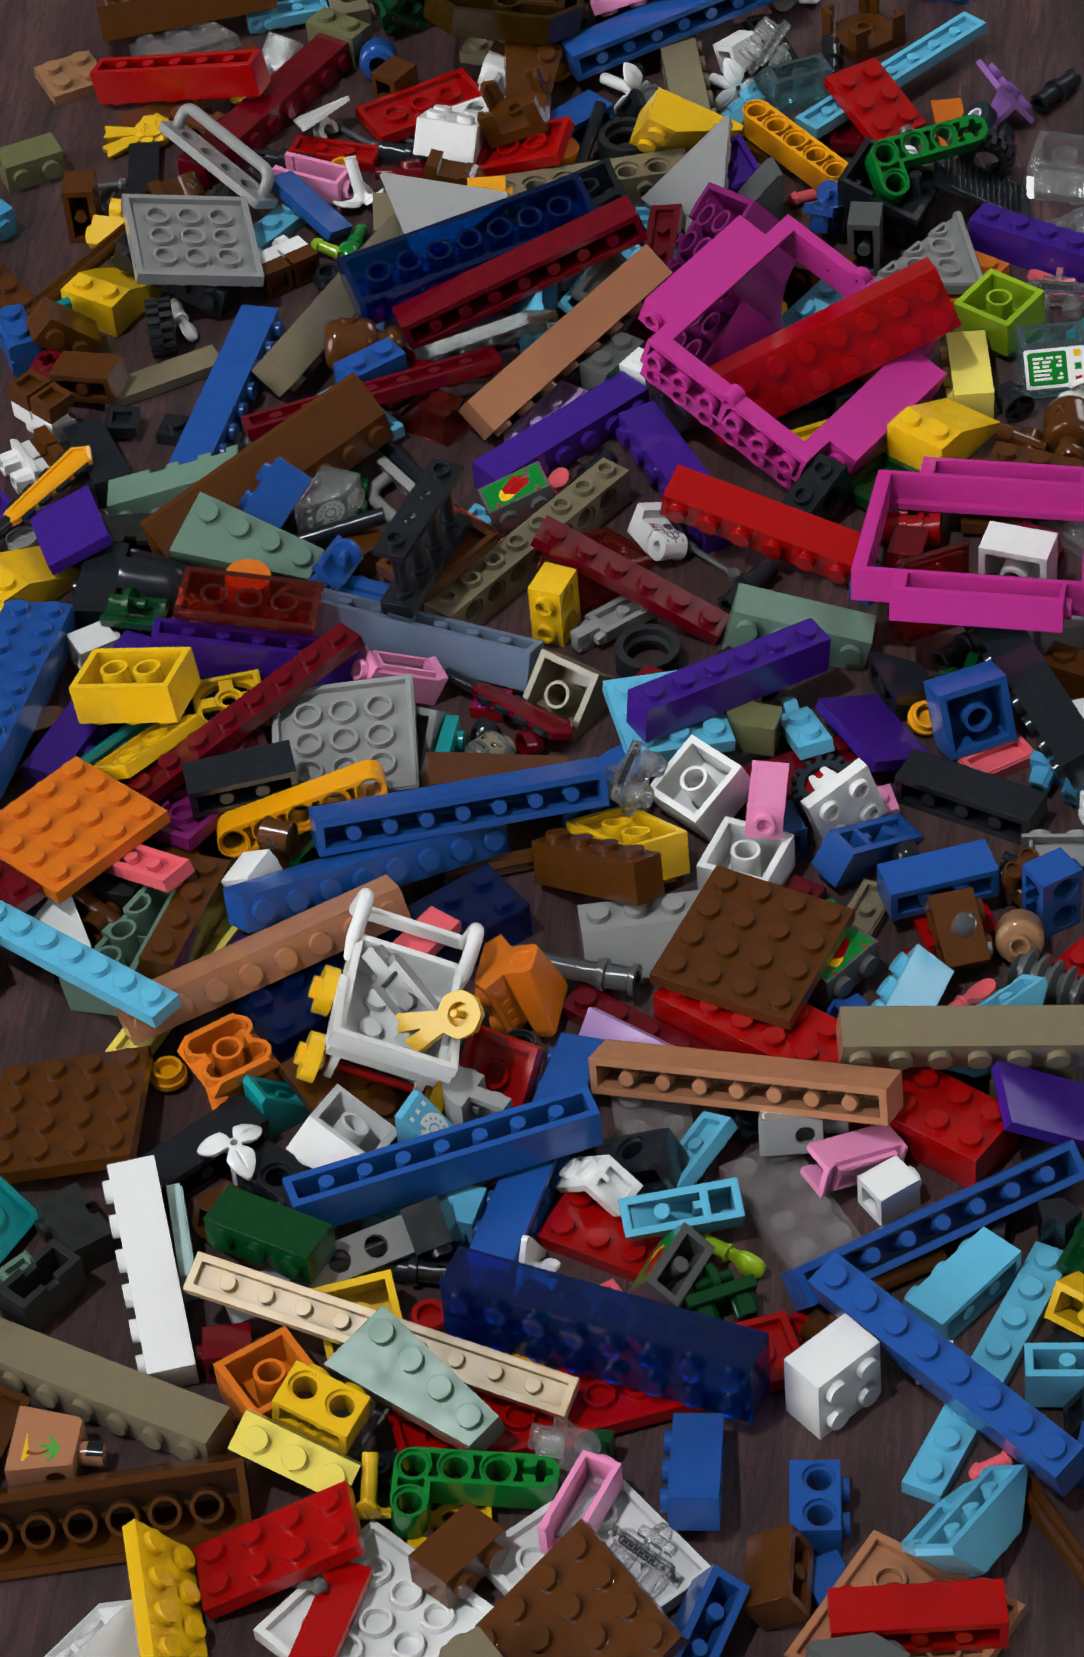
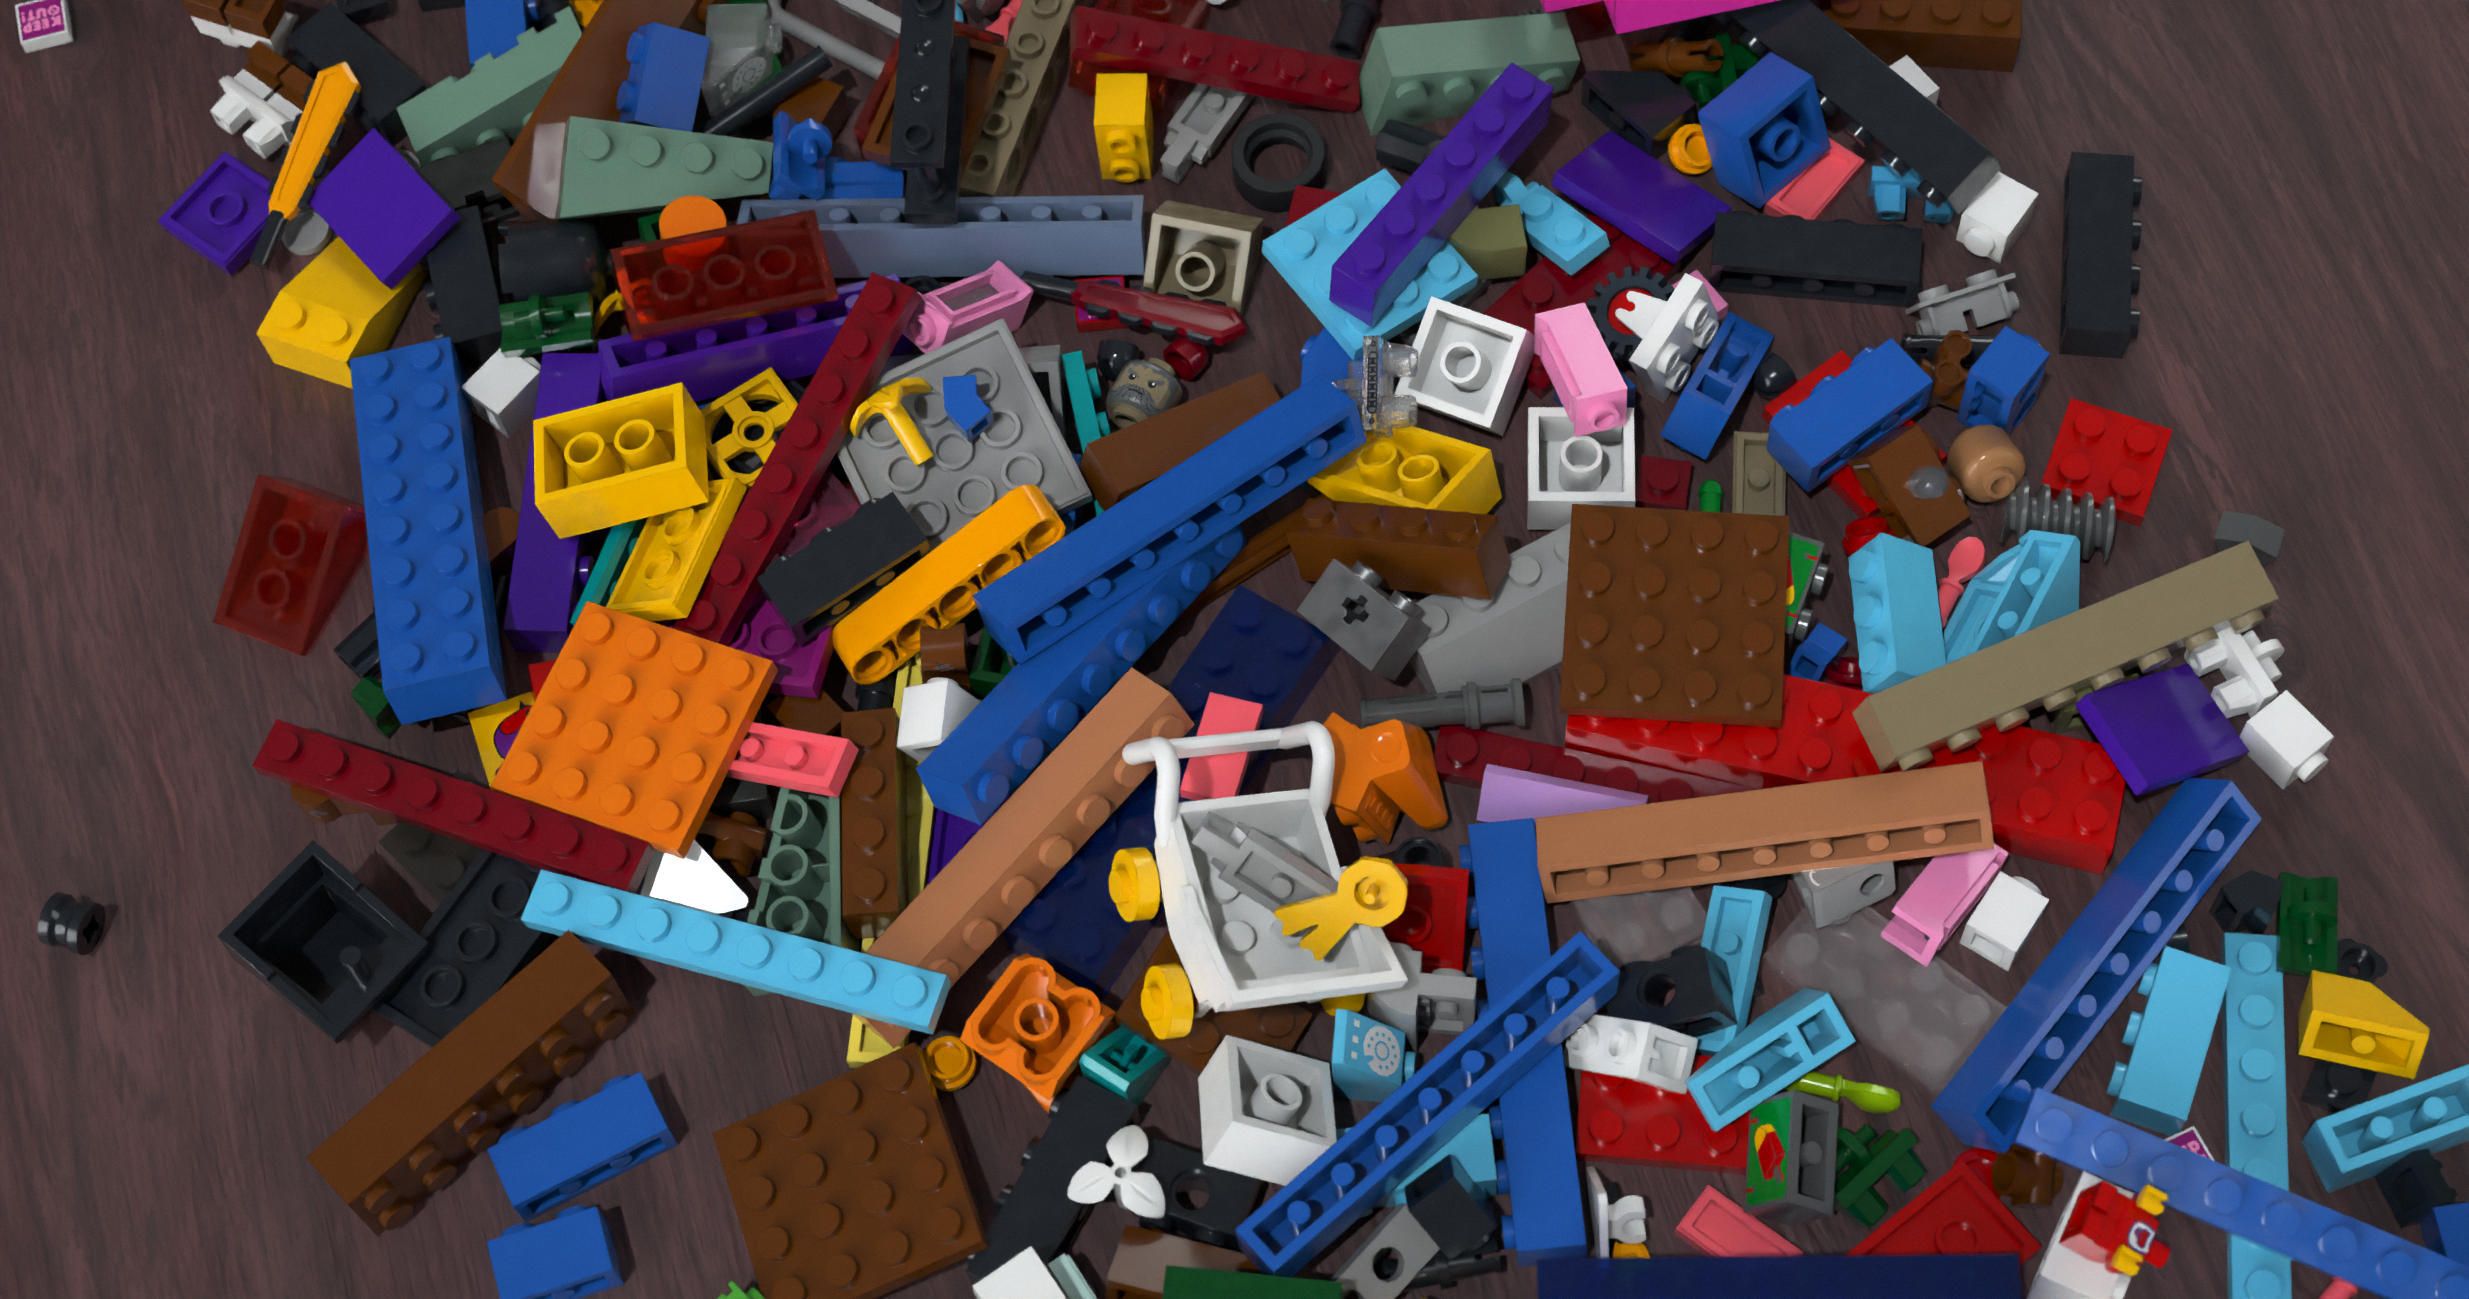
camera: 20 degrees left, 20 degrees up
(313, 693) = (889, 403): none -> yellow plant
(361, 711) = (964, 405): none -> blue piece
(553, 897) = (1380, 641): none -> flat silver brick
(841, 1339) = (2117, 1228): none -> red piece
(939, 658) = (1676, 56): none -> reddish brown pin

